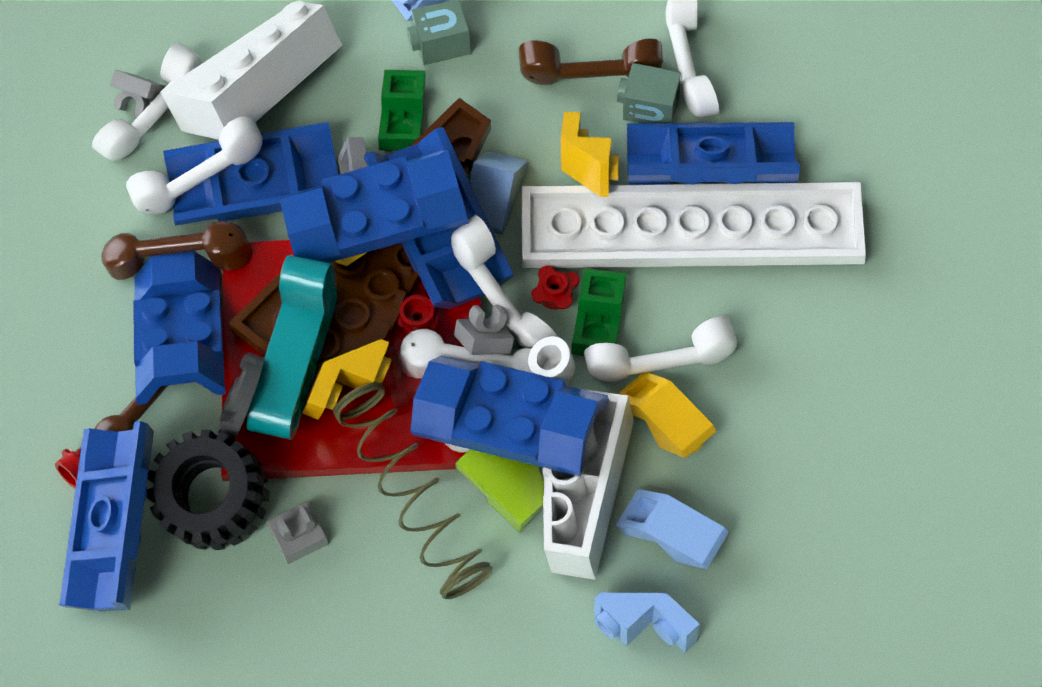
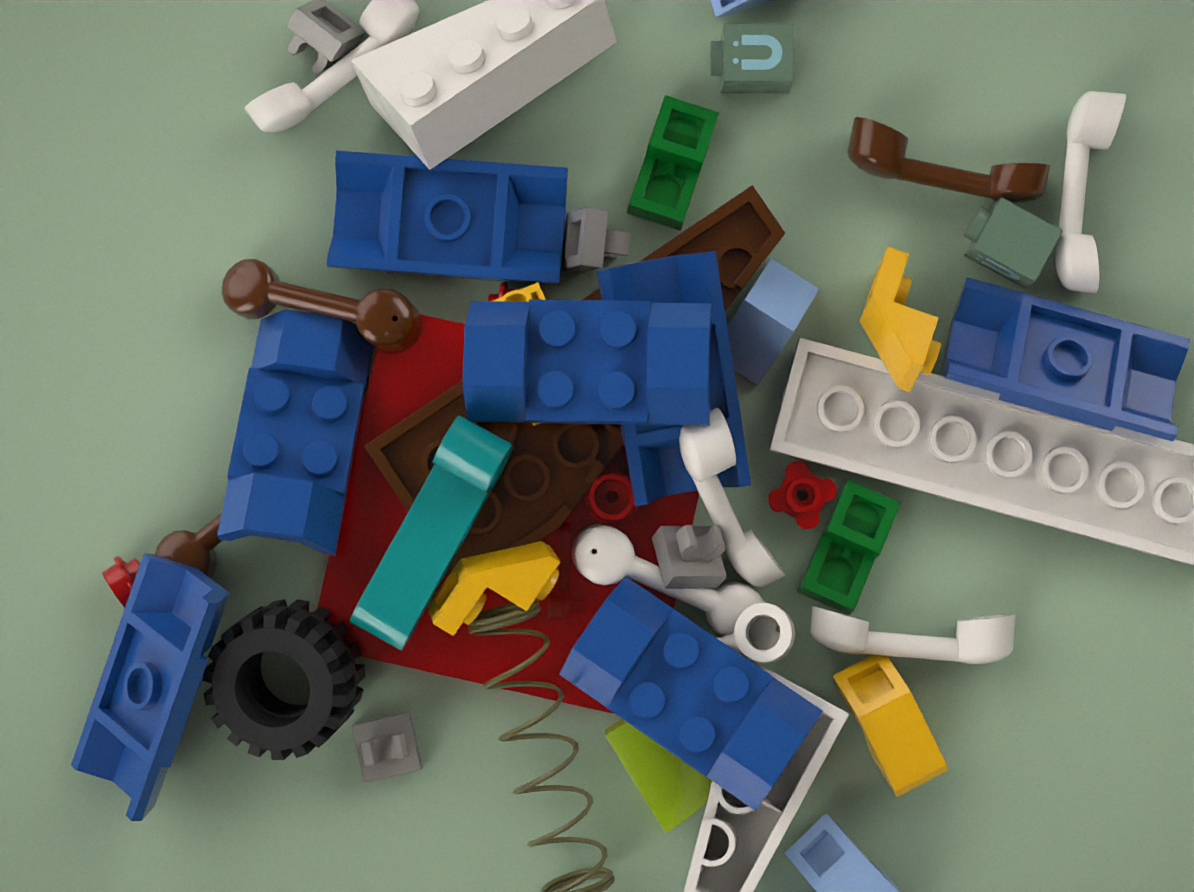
camera: 10 degrees right, 25 degrees up
(154, 193) = (314, 208): white piece -> none
(240, 395) = (353, 571): dark grey tile -> none

